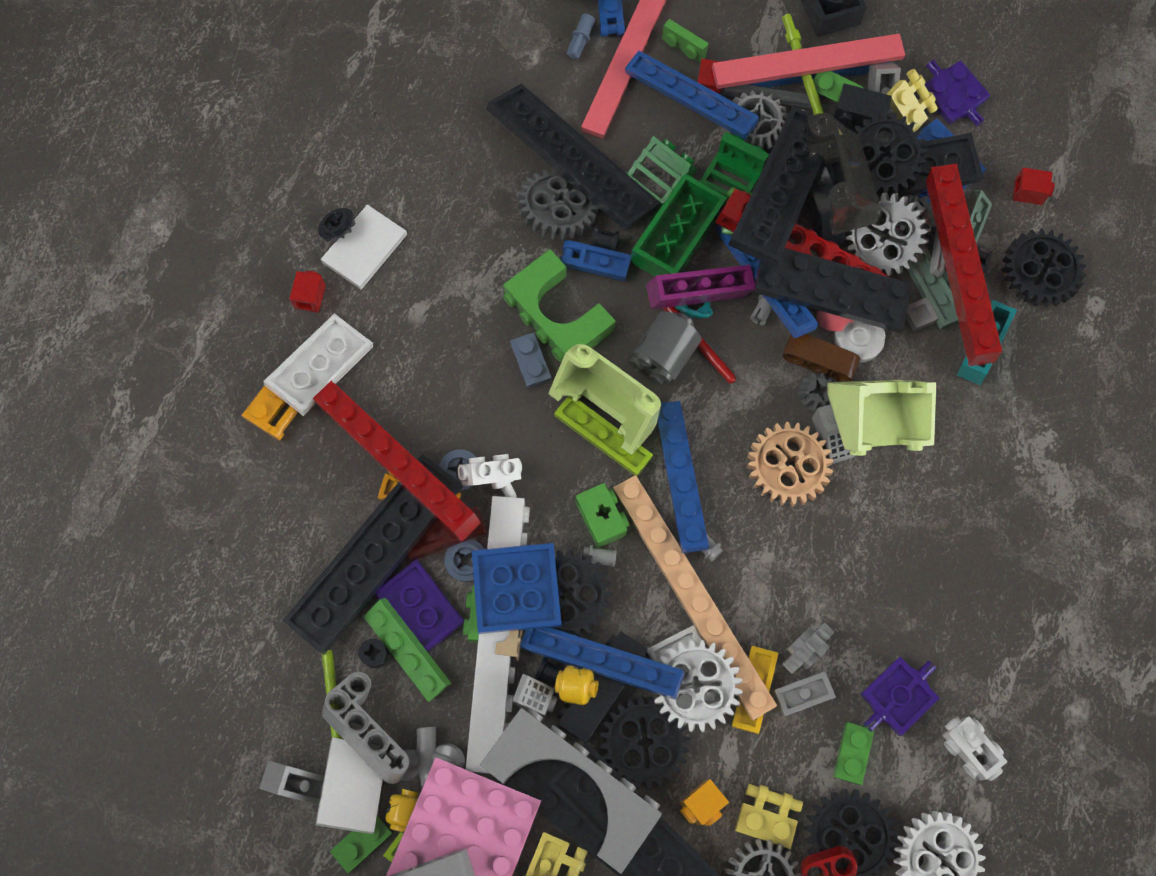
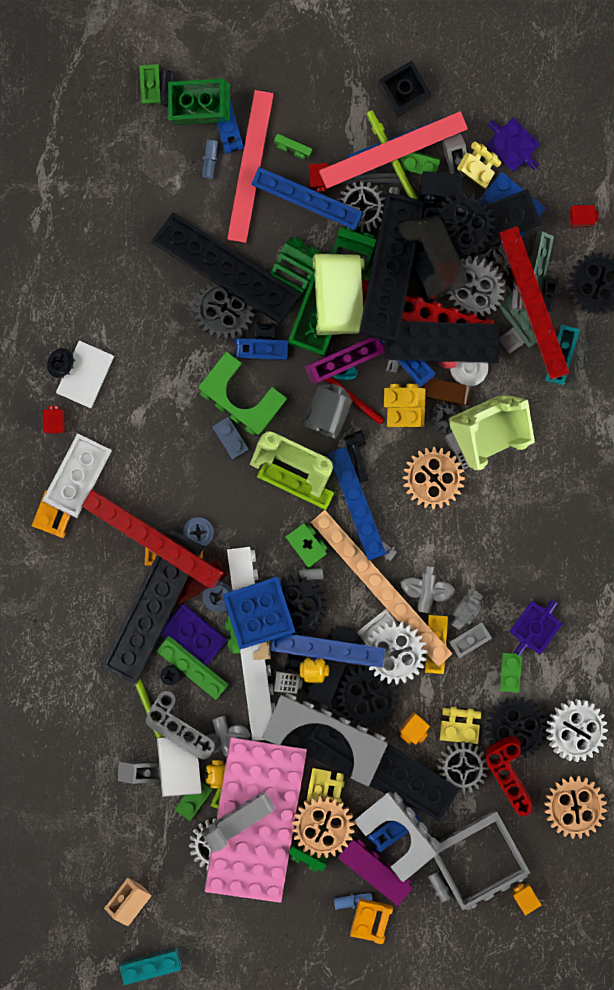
camera: 15 degrees left, 15 degrees up
(497, 472) = (224, 531): white brick -> none
(694, 396) = (354, 442): none -> black brick
(709, 201) = (338, 293): none -> yellowish green windscreen
(755, 611) = (427, 590): none -> light grey plant
(768, 362) = (405, 405): none -> yellow plate
(968, 741) = (585, 648): white brick -> none

